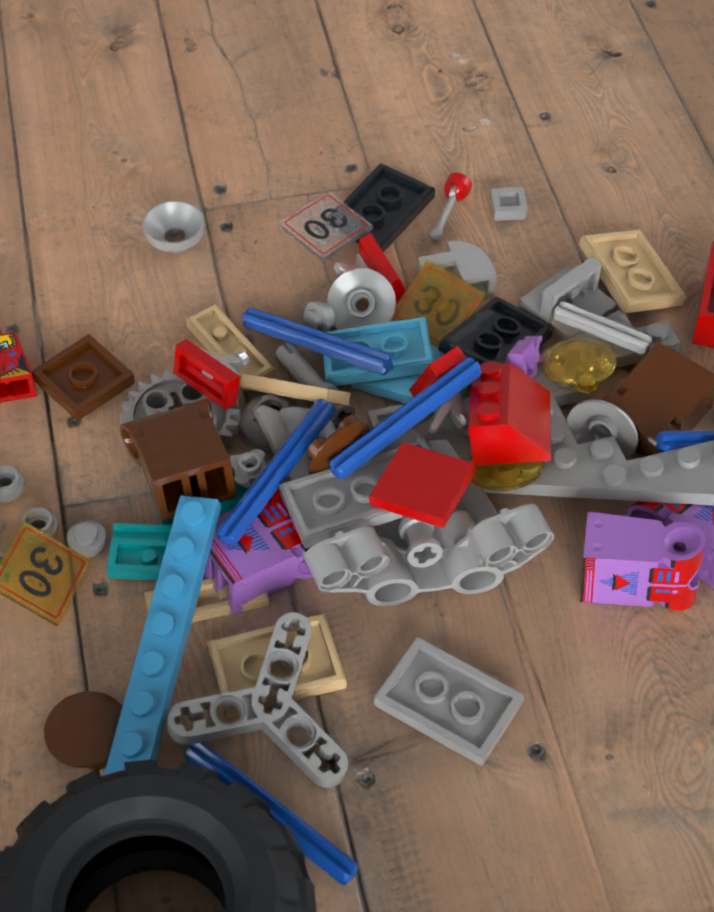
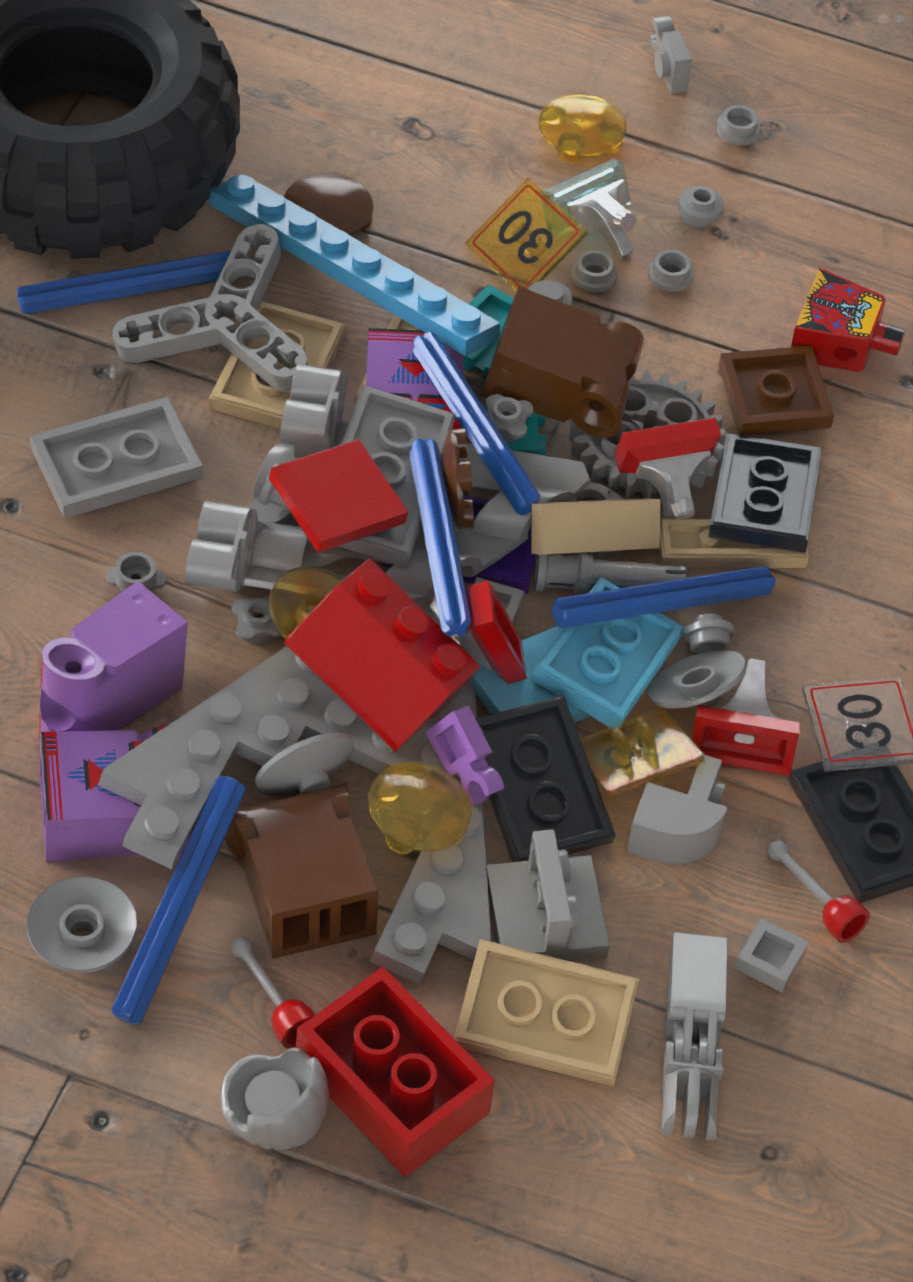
camera: 120 degrees right, 0 degrees up
(154, 342) = (765, 492): none -> tile
(533, 616) = (135, 566): none -> light grey plate
(577, 214) = (694, 1015): none -> light grey arm
(603, 328) = (456, 871): light grey axle -> none

